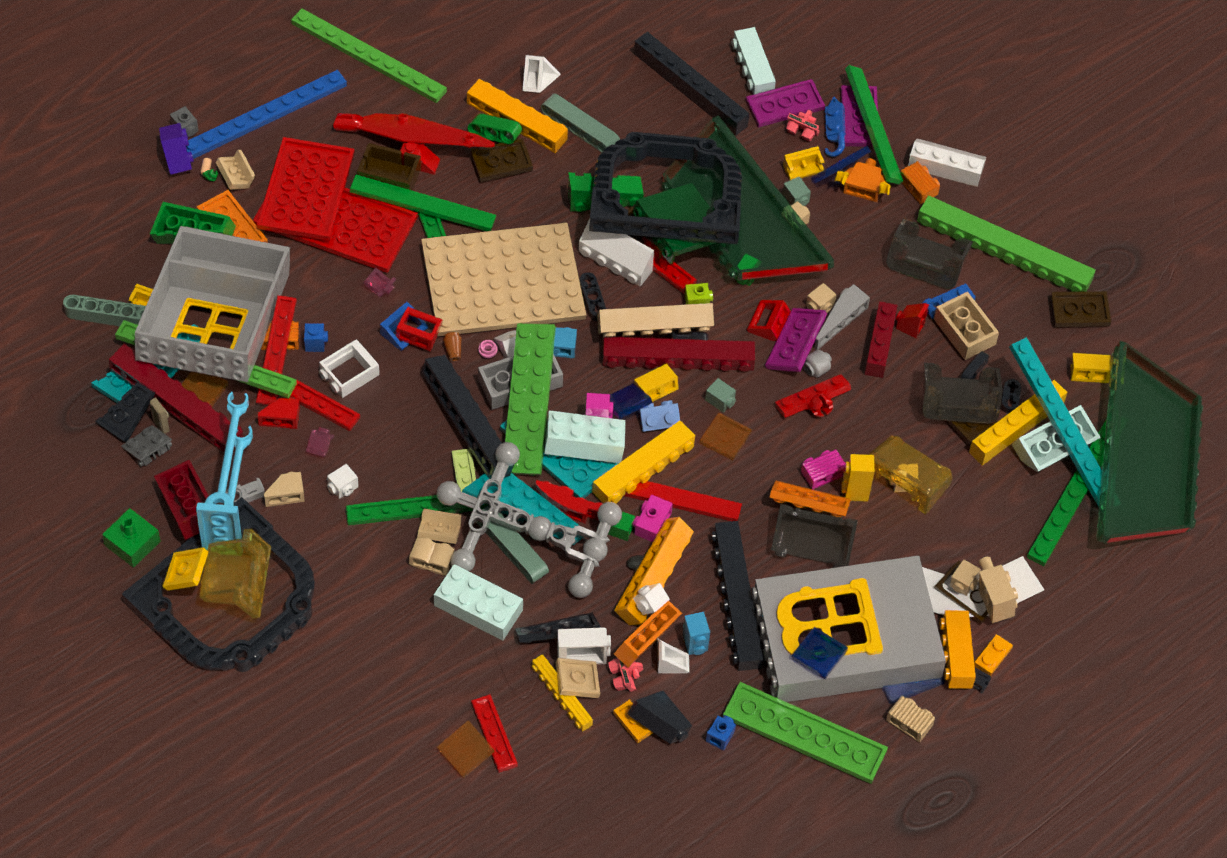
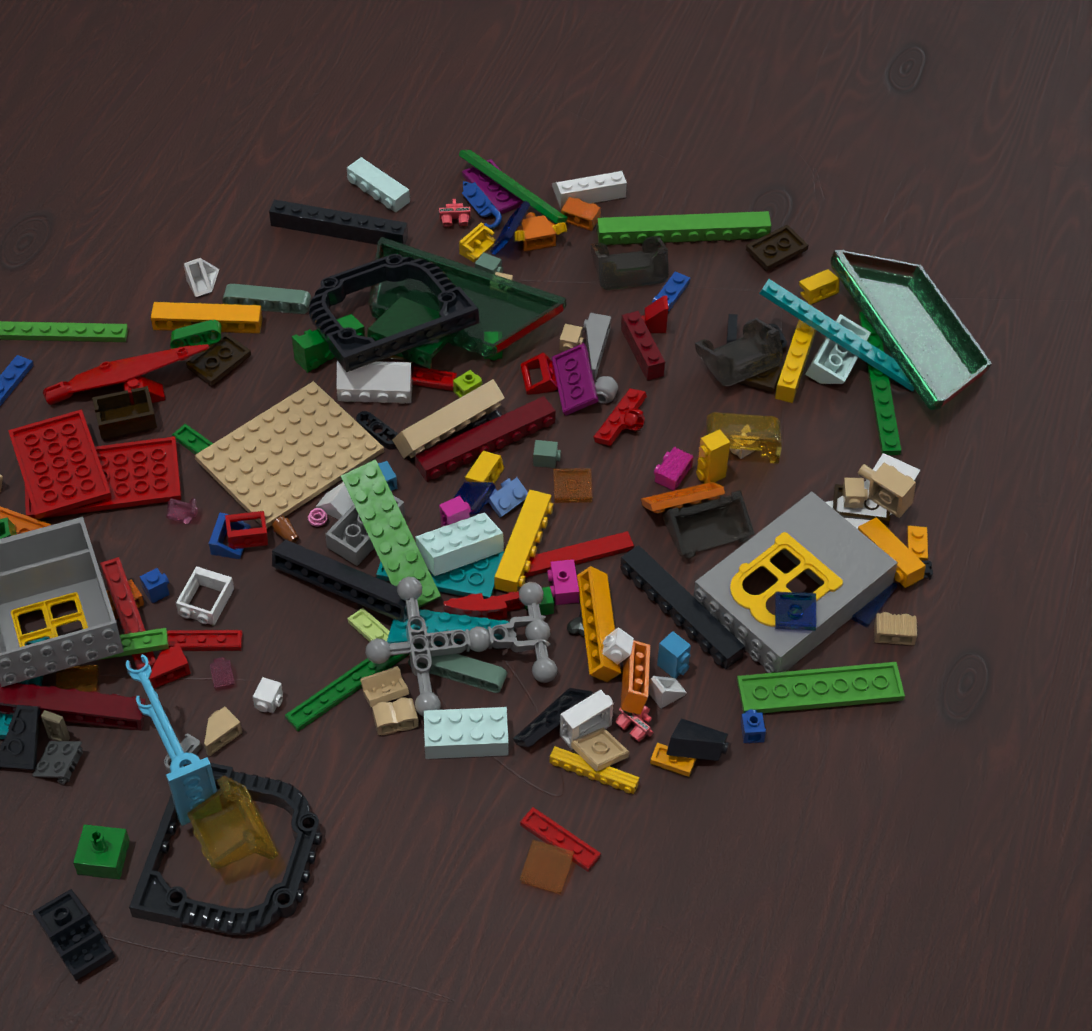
camera: 30 degrees left, 5 degrees down
(70, 591) = (73, 934): none -> black slope
(182, 492) = (133, 786): dark red brick -> none
(185, 569) = (180, 848): yellow plate -> none
(423, 203) = (173, 426): green tile -> none
(776, 104) = (425, 205): magenta tile -> none
(966, 325) = (702, 301): tan brick -> none

